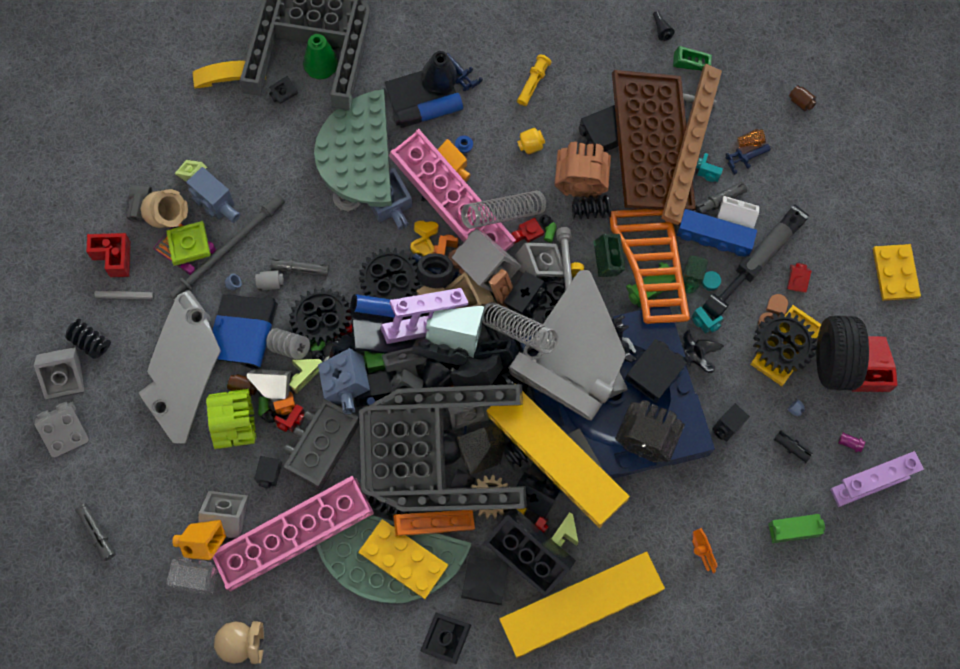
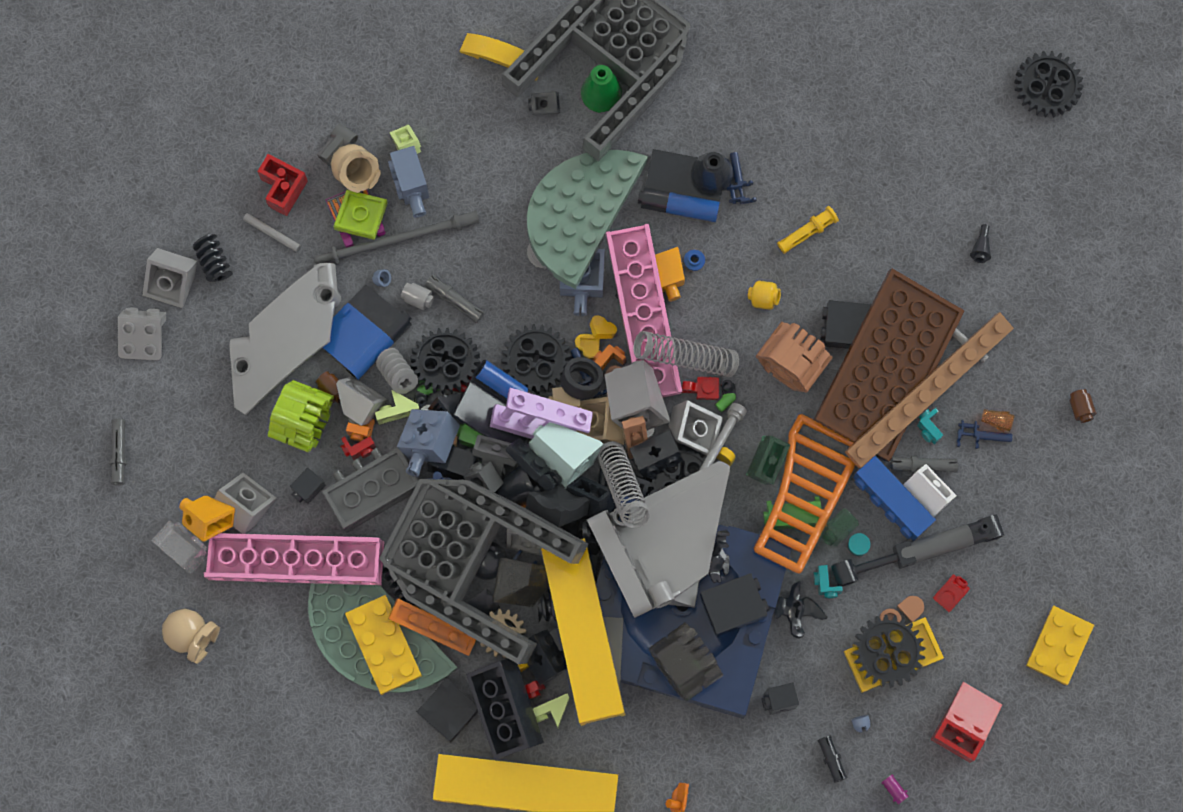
camera: 35 degrees right, 5 degrees up
(264, 412) = (338, 426): arm -> none
(445, 638) = (379, 742): black slope -> none
(591, 206) = (782, 399): black piece -> none
(684, 63) = (987, 304): green slope -> none
(842, 353) = (936, 695): black tyre -> none

